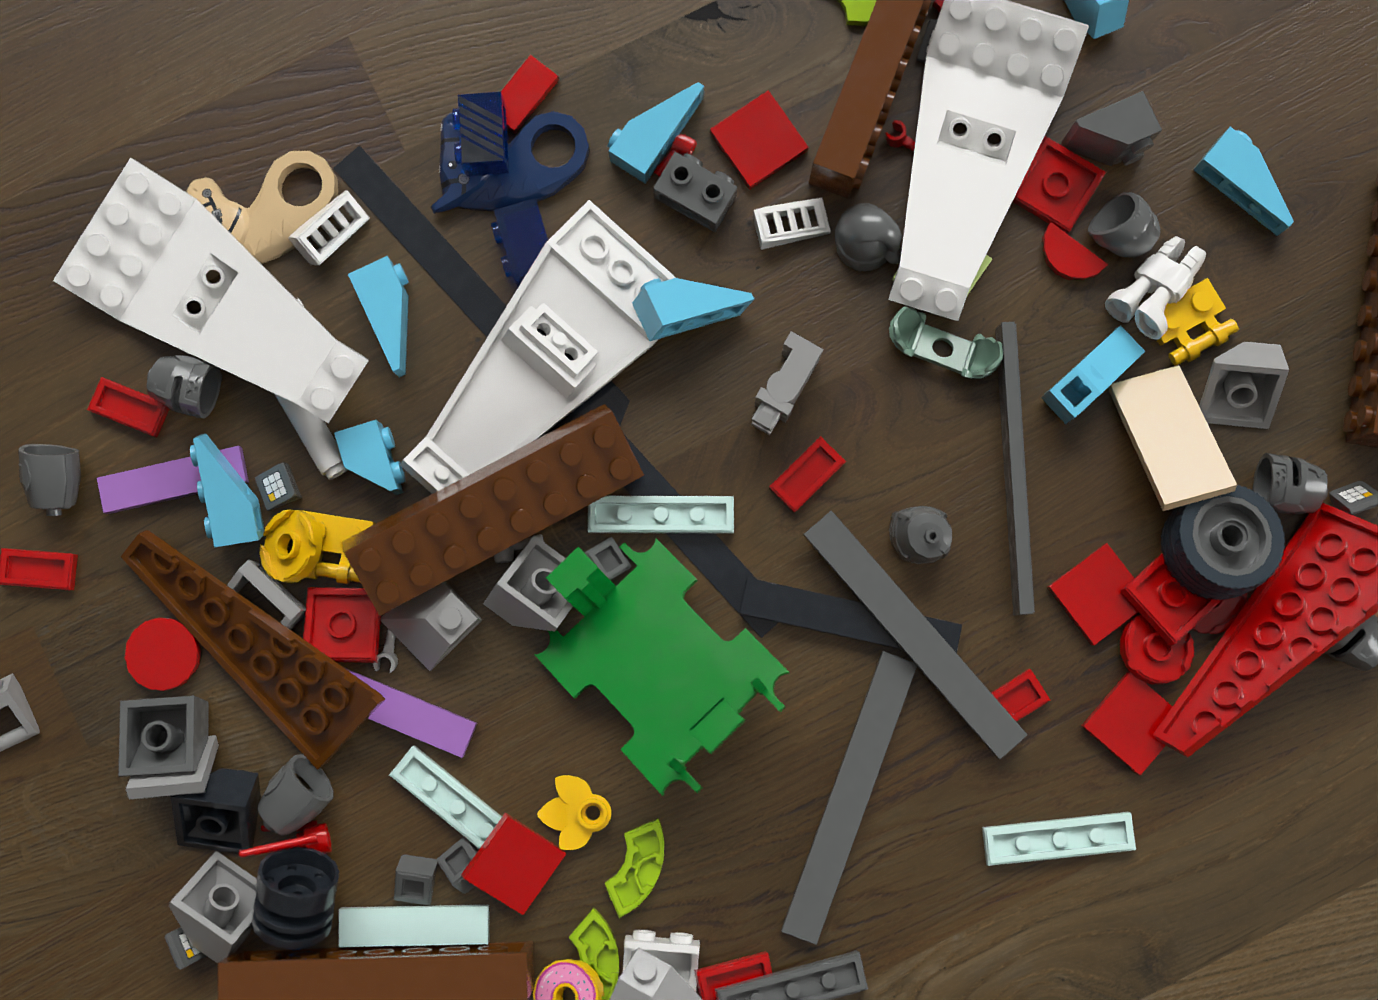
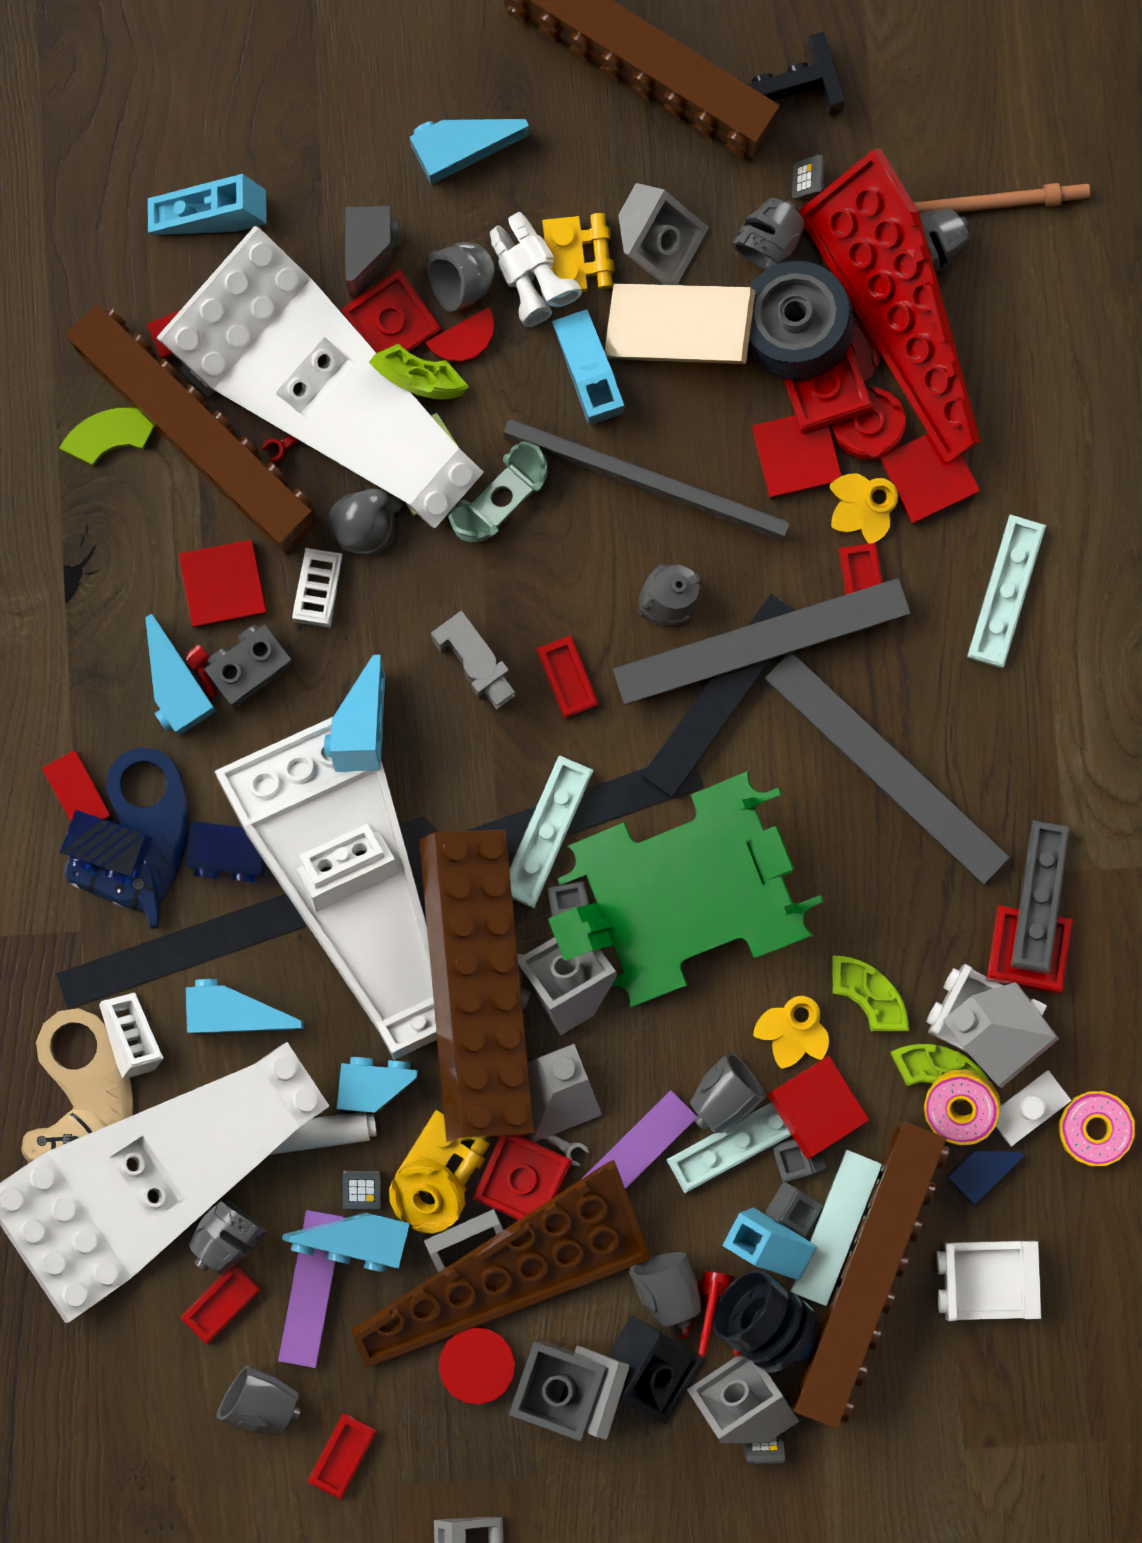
camera: 70 degrees left, 0 degrees up
(370, 872) = (769, 1244): none -> medium azure slope
(491, 776) = (726, 1094): none -> dark grey helmet
(1018, 226) = (419, 376): none -> lime tile
(1075, 670) = (859, 510): none -> yellow plate

